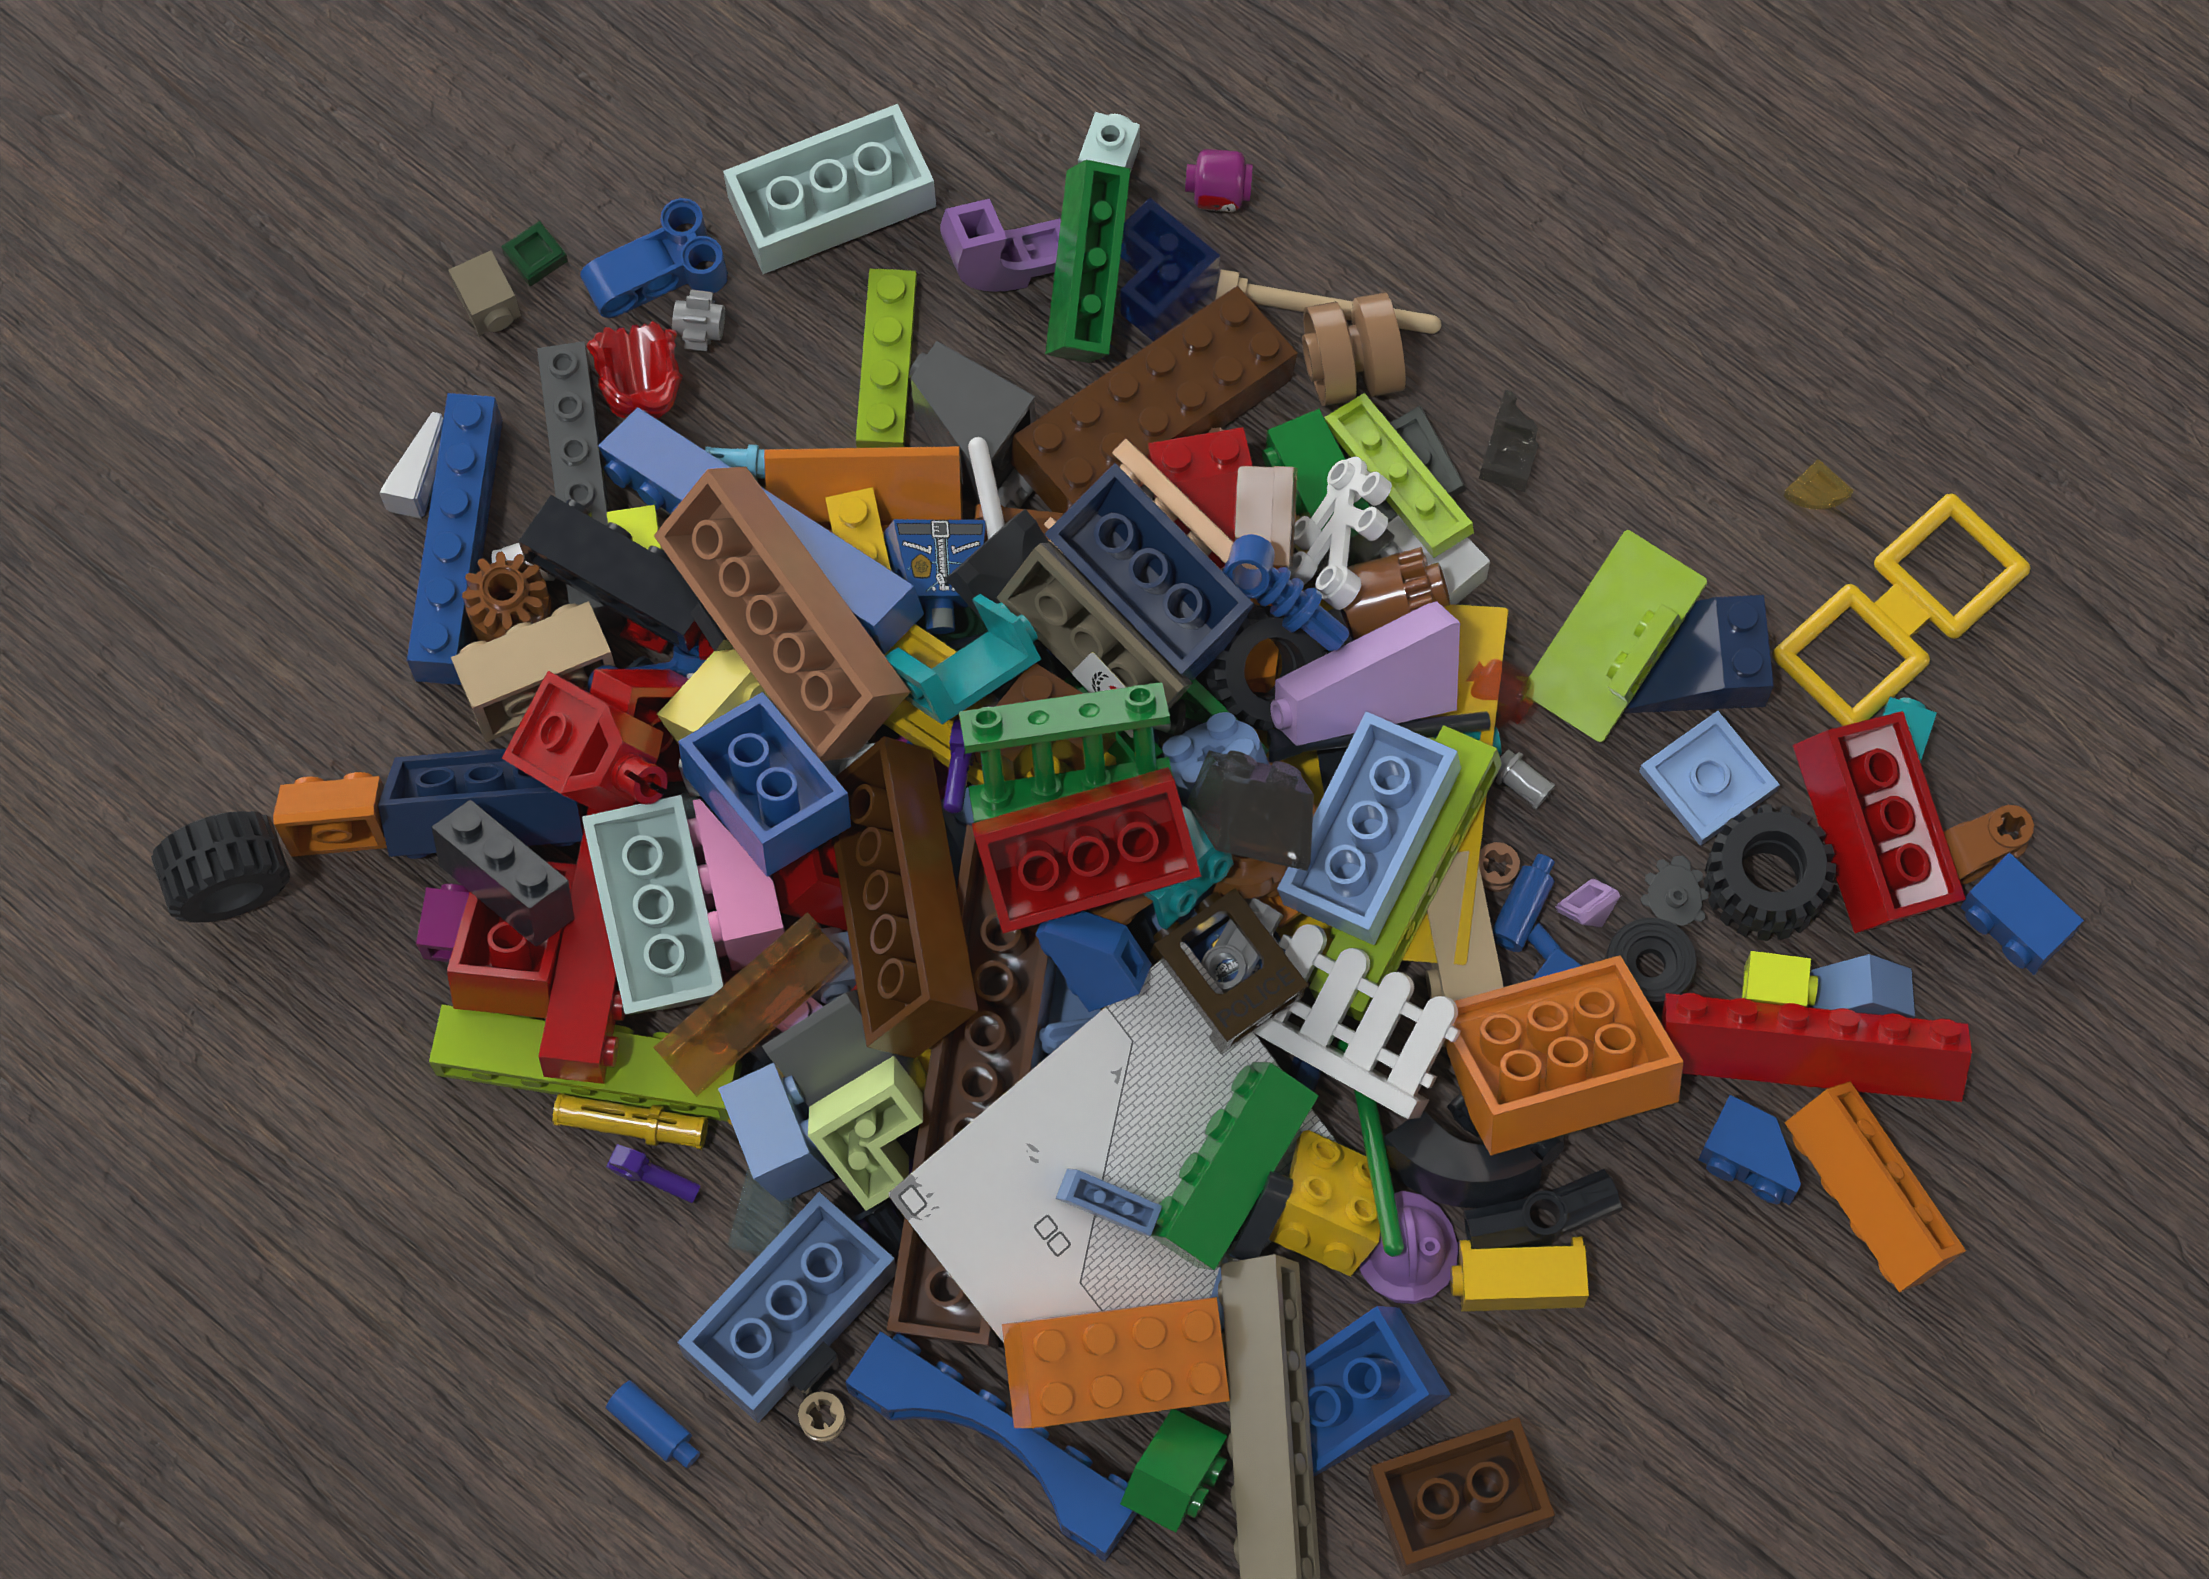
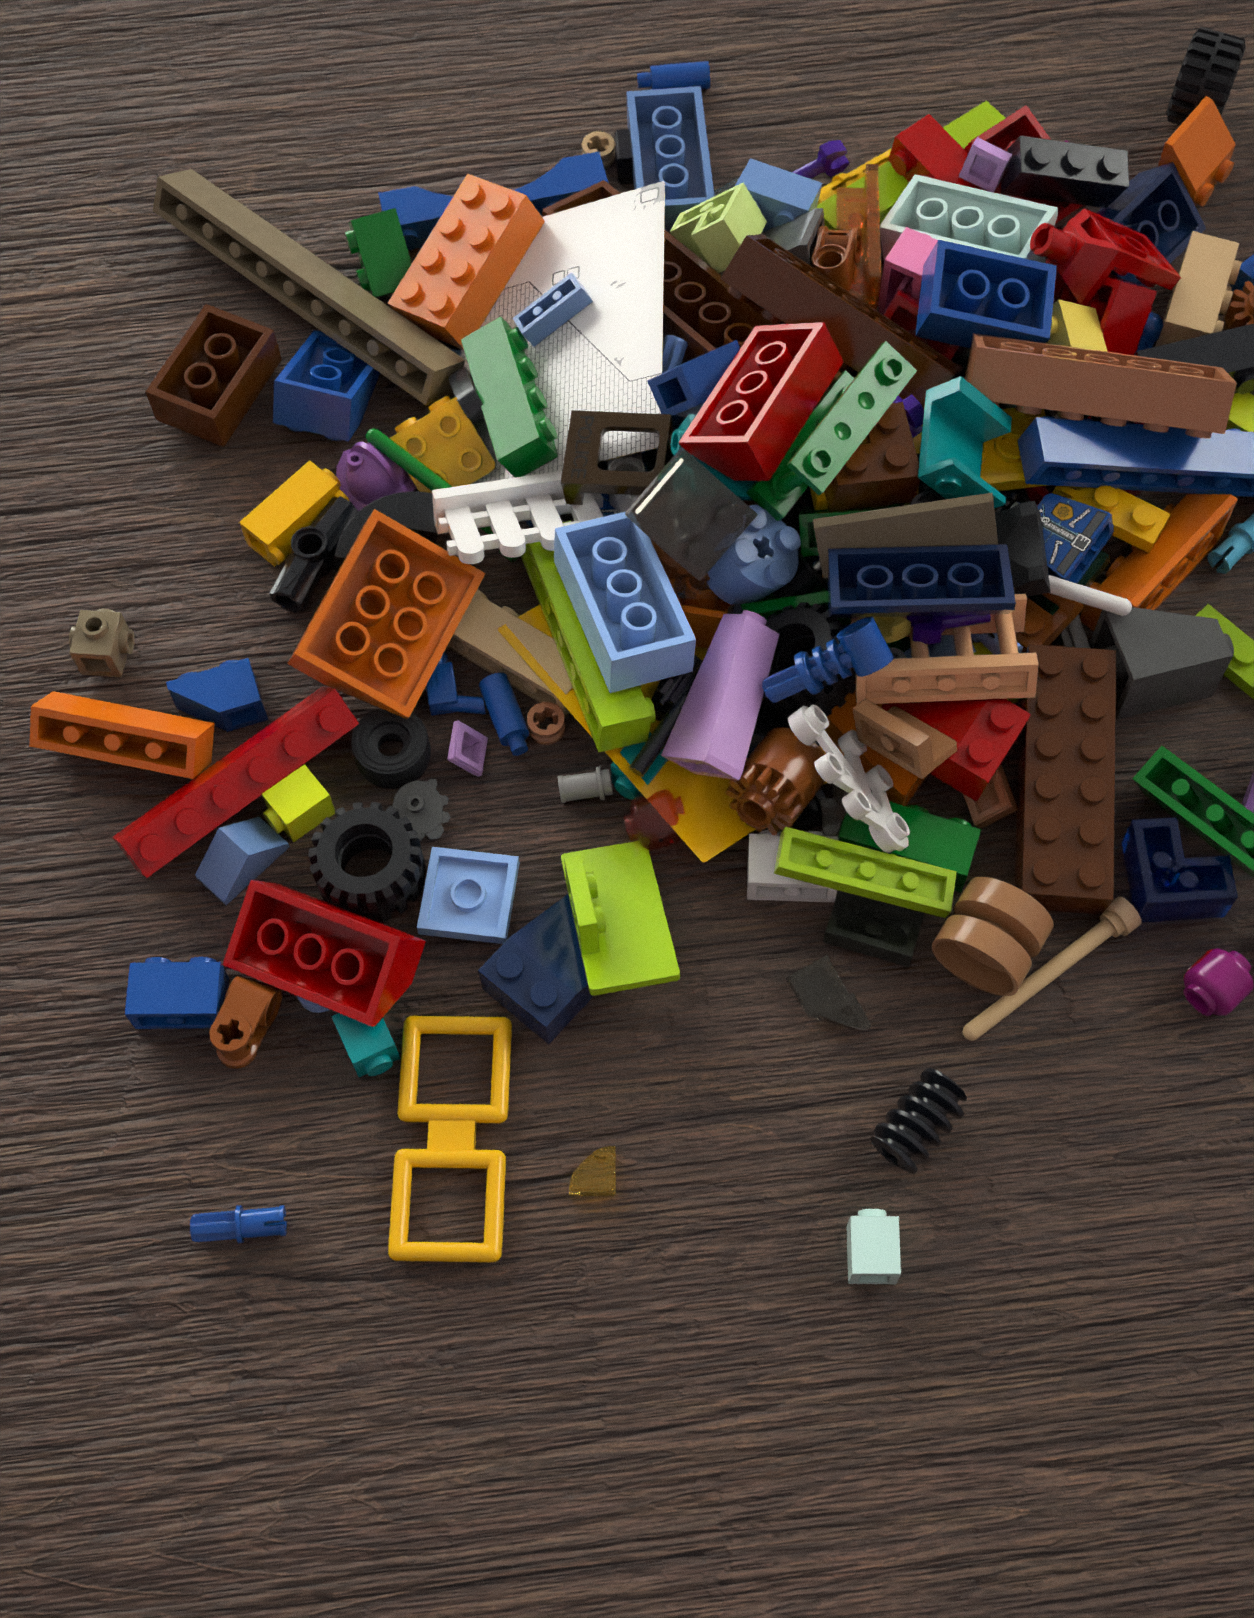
camera: 135 degrees right, 5 degrees down
(568, 940) = (985, 165): none -> lavender plate
(805, 988) = (838, 254): none -> dark orange piece
(1551, 291) = (917, 1119): none -> black piece
(1675, 250) = (873, 1248): none -> light aqua brick
(1827, 1290) = (101, 642): none -> dark tan brick
(2124, 693) = (238, 1224): none -> blue axle

